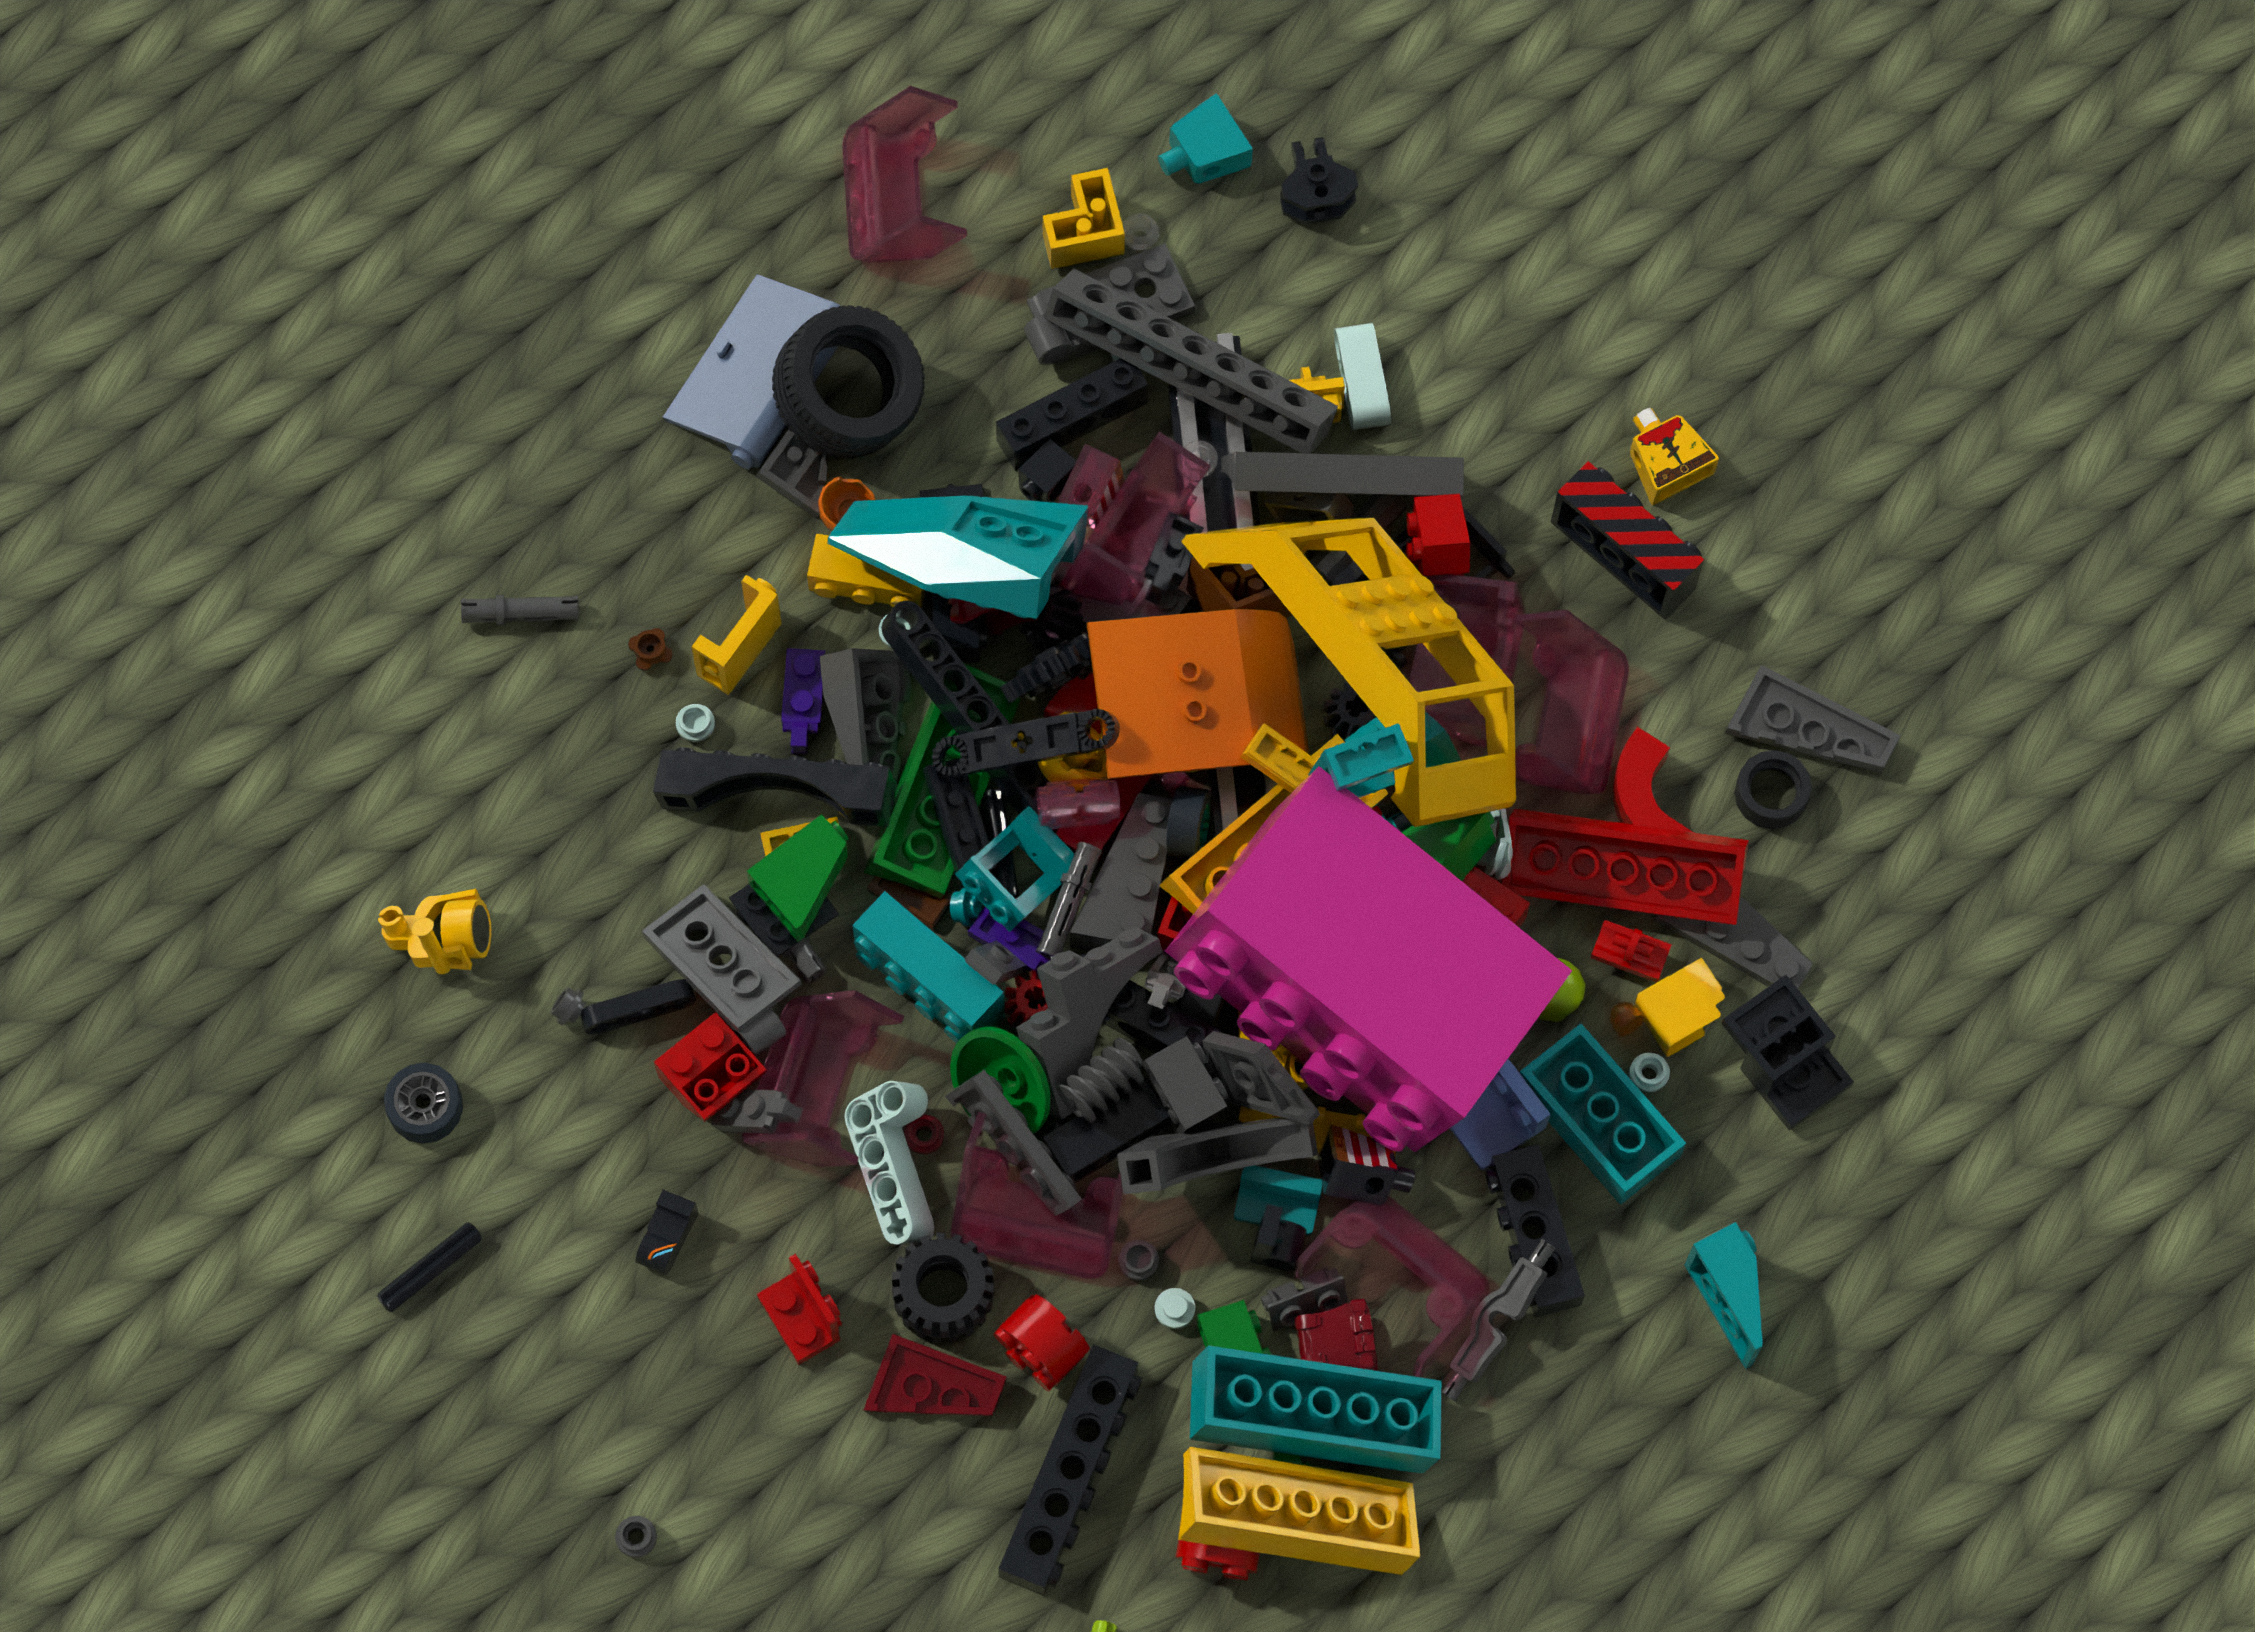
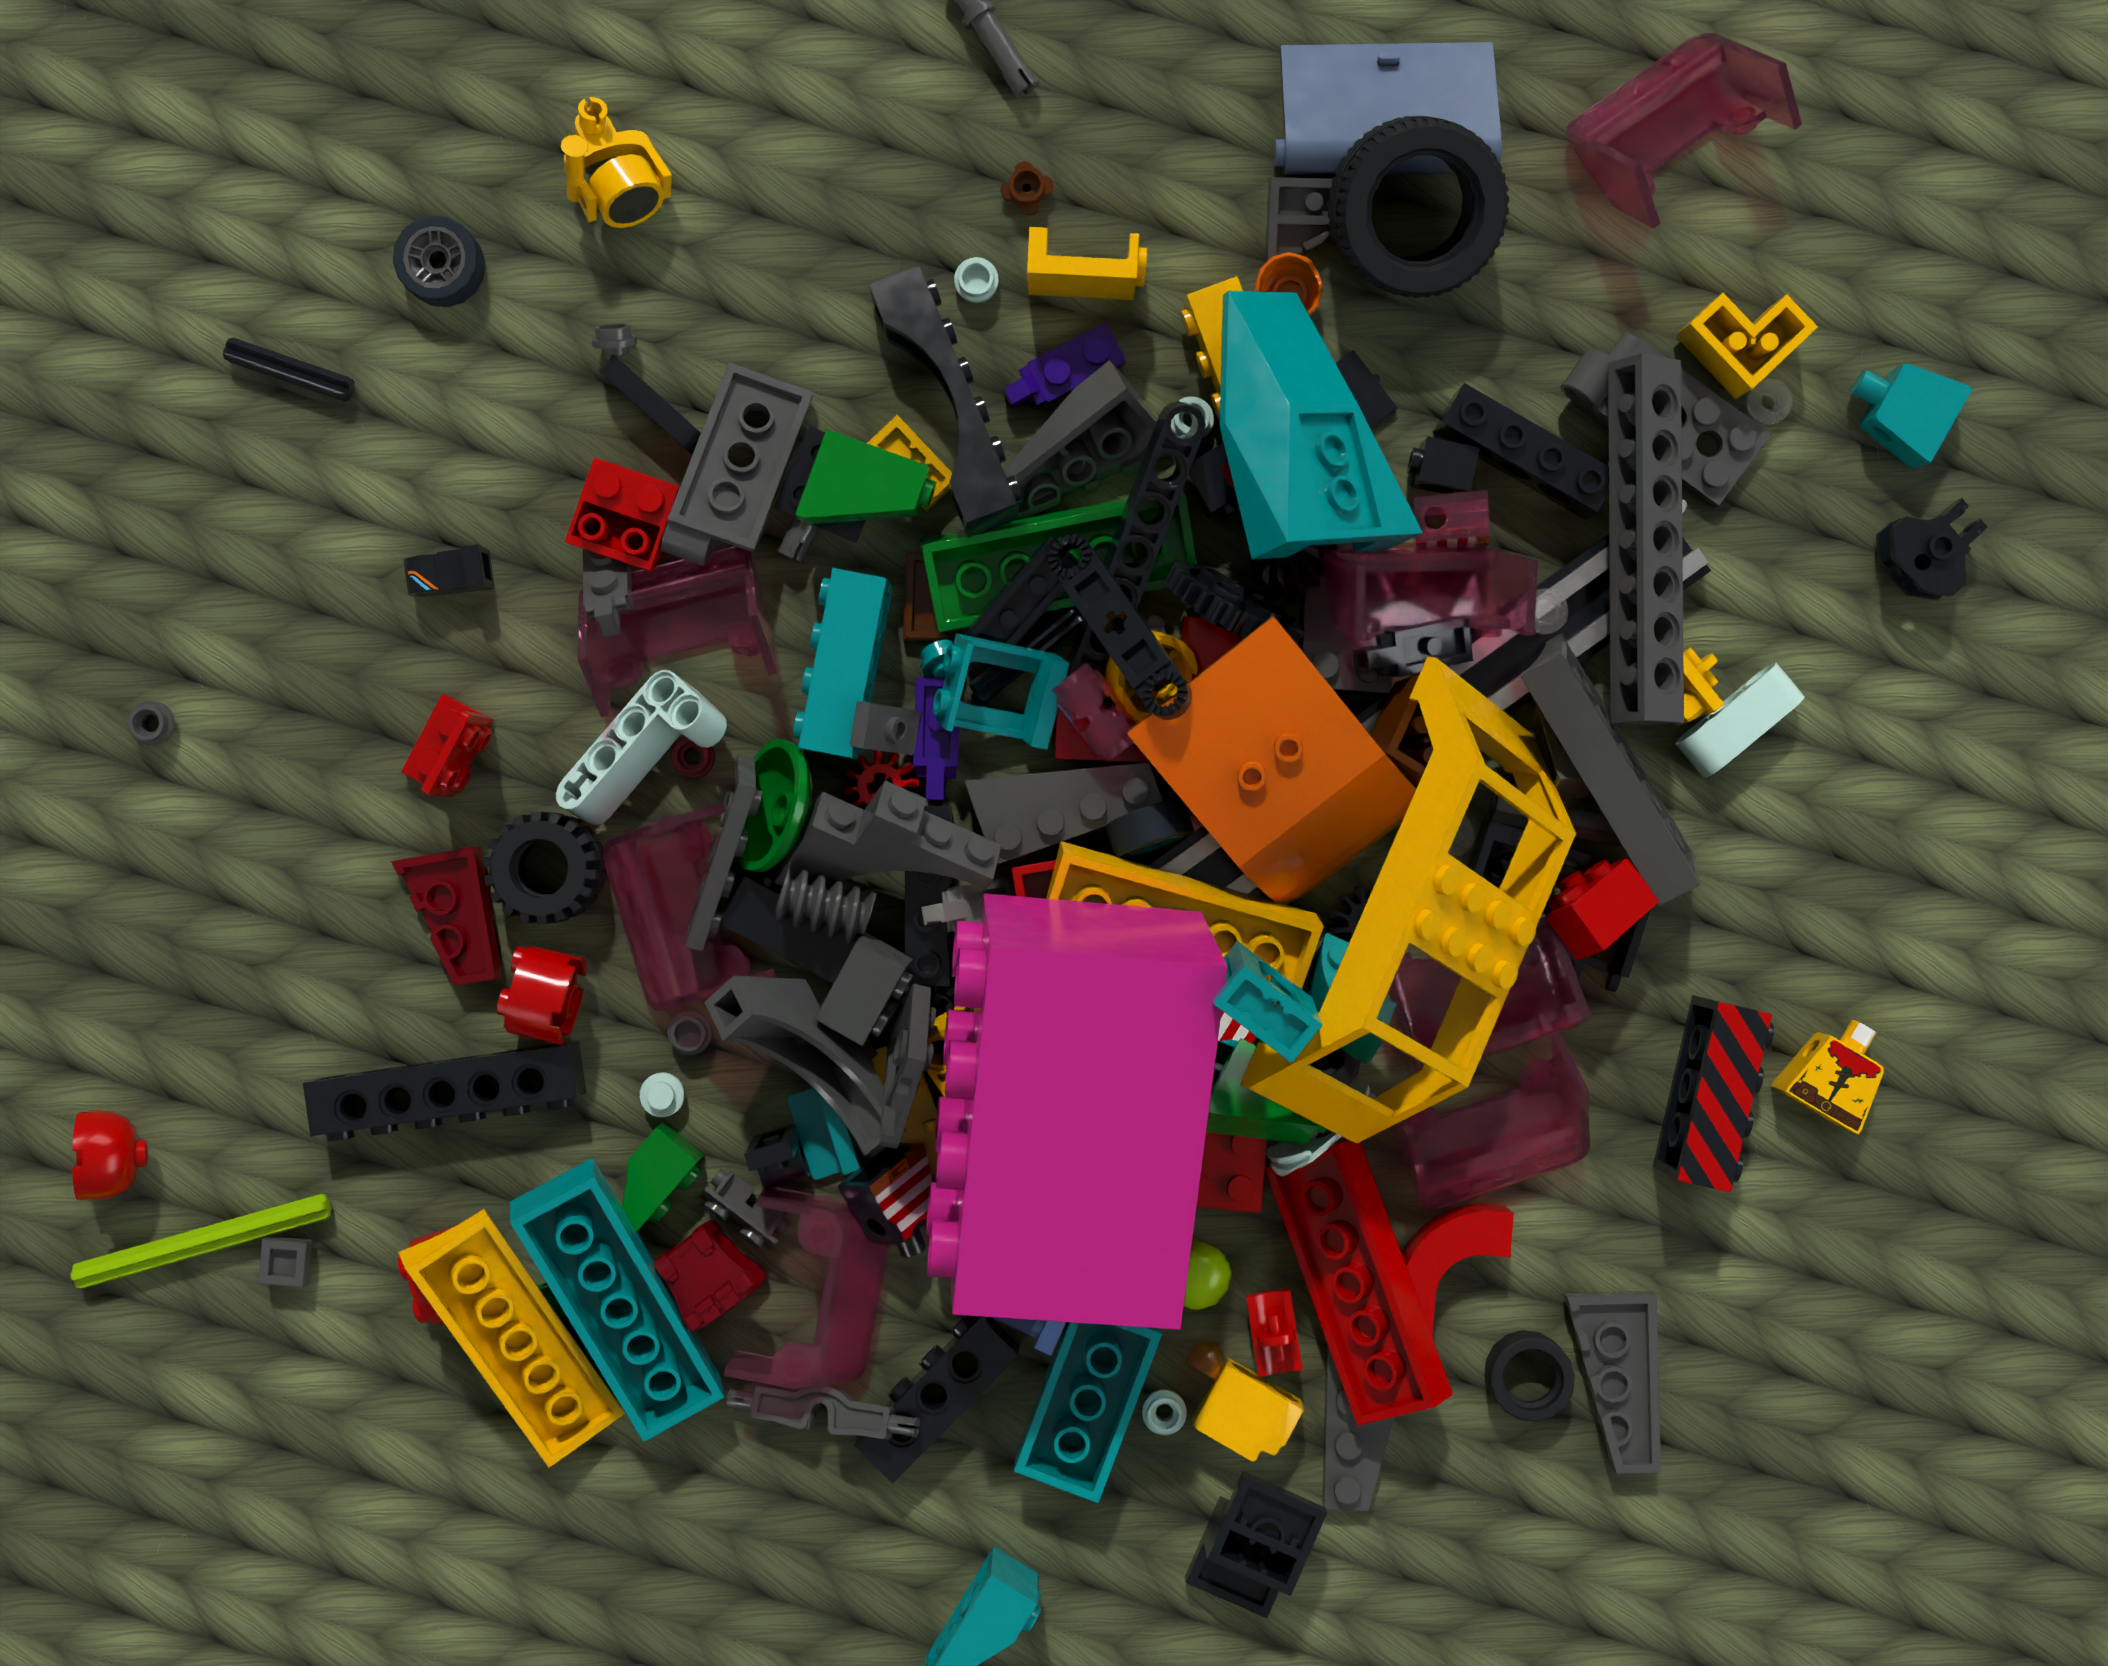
camera: 55 degrees right, 20 degrees up
(1074, 887) = (996, 760): dark grey pin -> none
(1278, 758) = (1255, 895): yellow plate -> none

